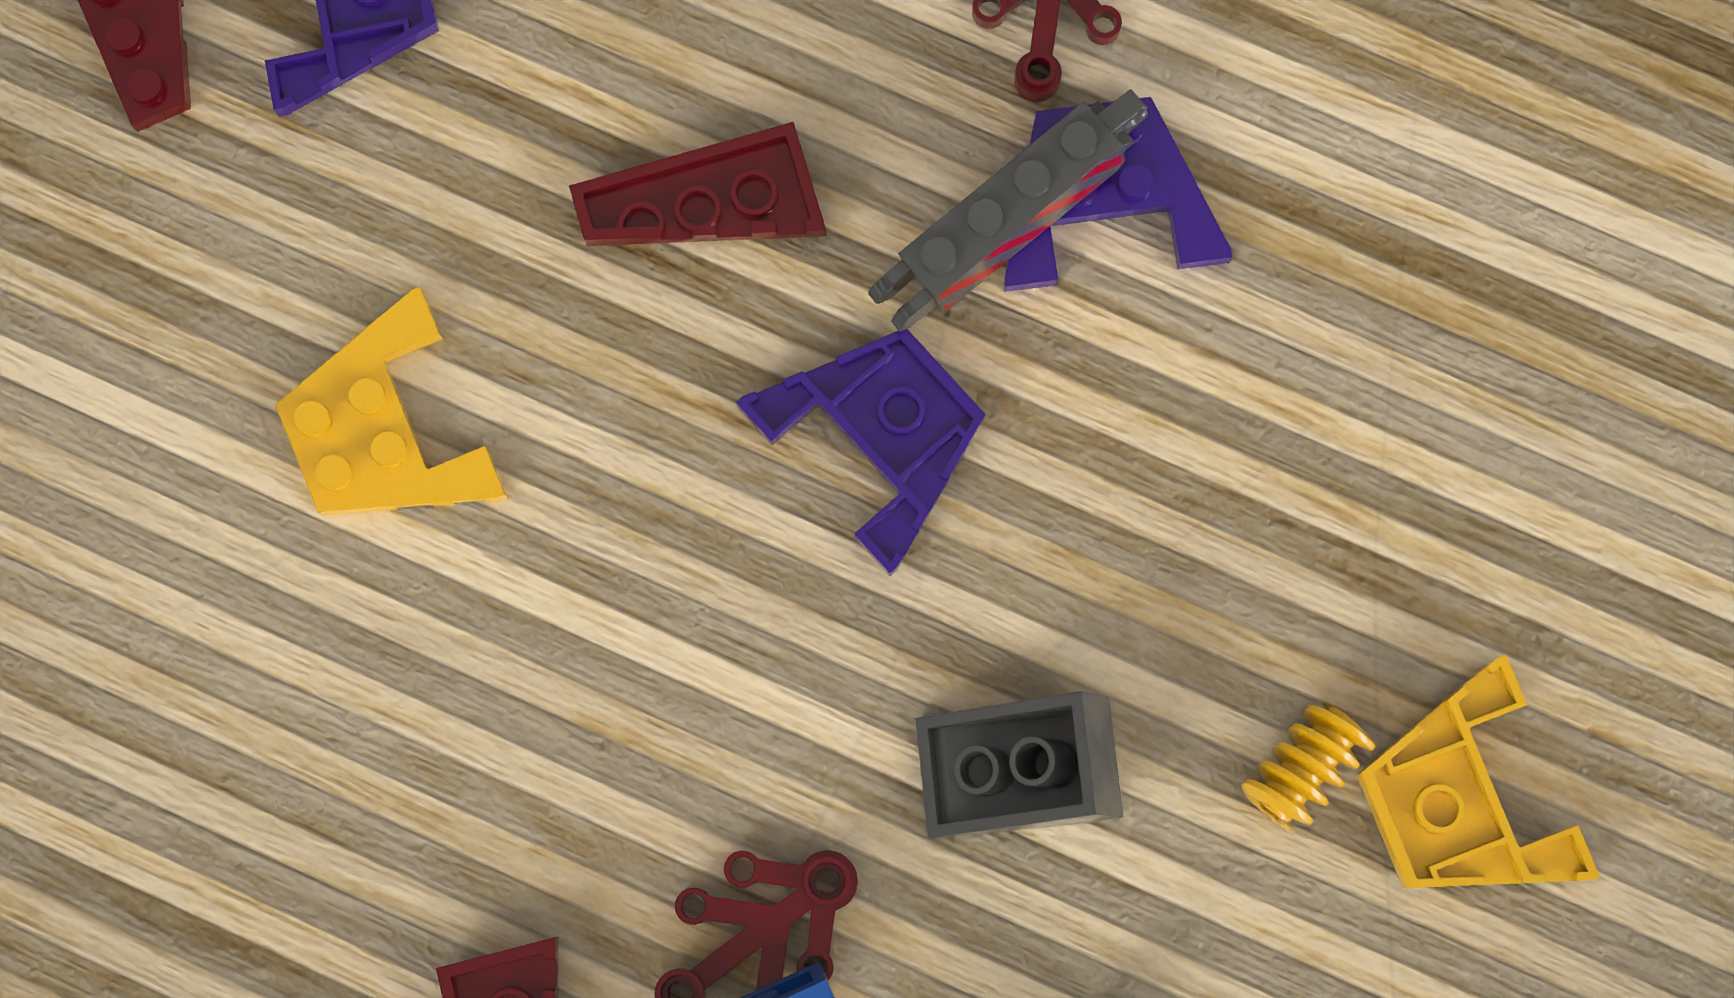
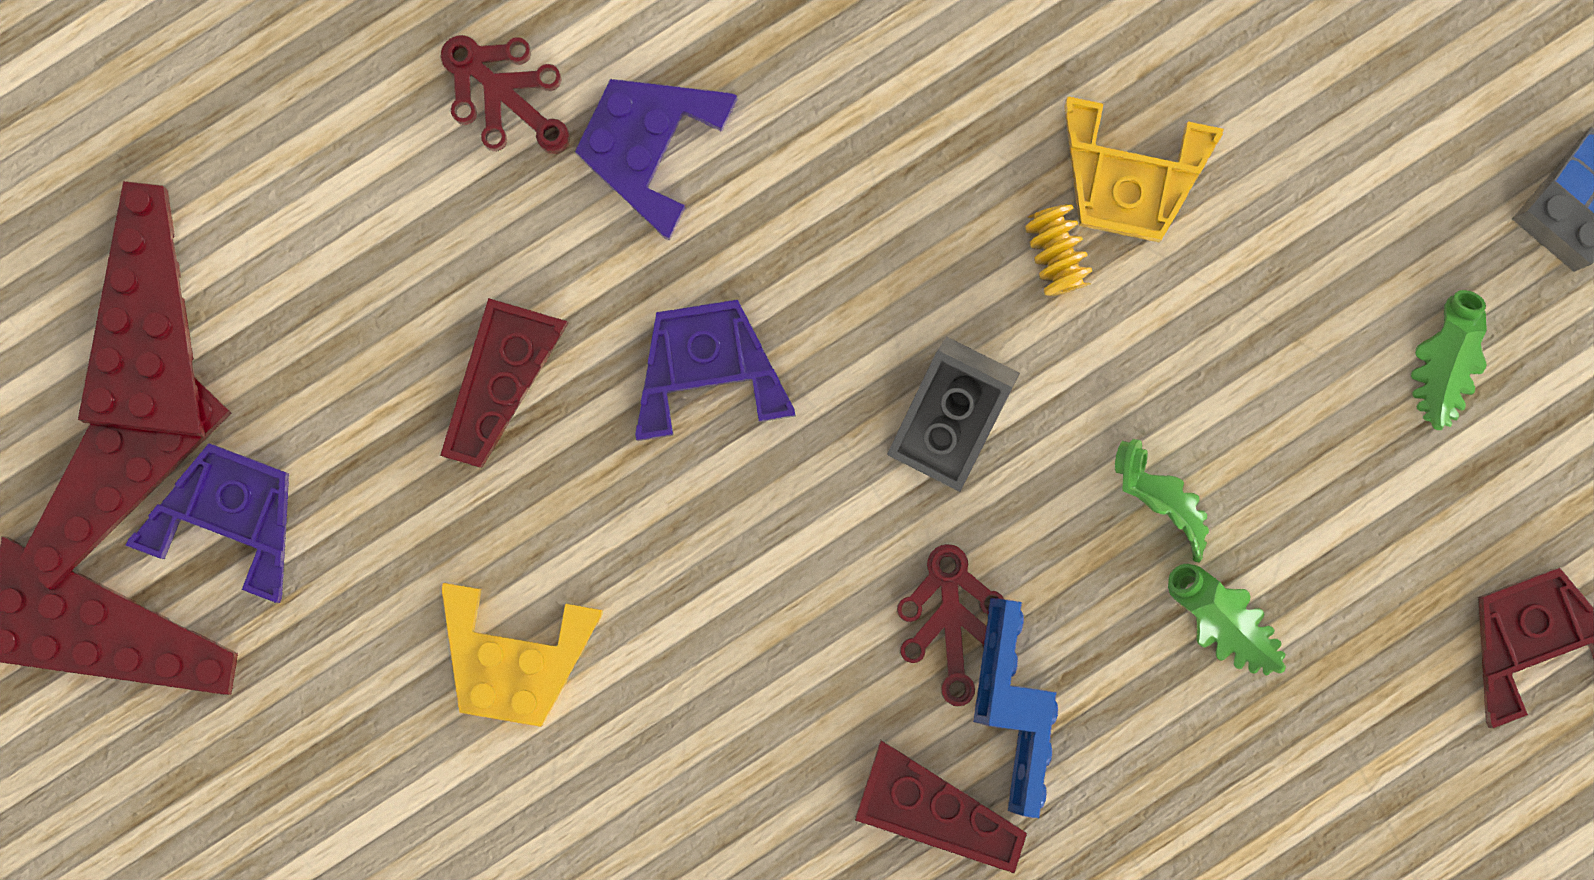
camera: 60 degrees left, 5 degrees up
(1012, 207) = (627, 203): dark grey hinge -> none

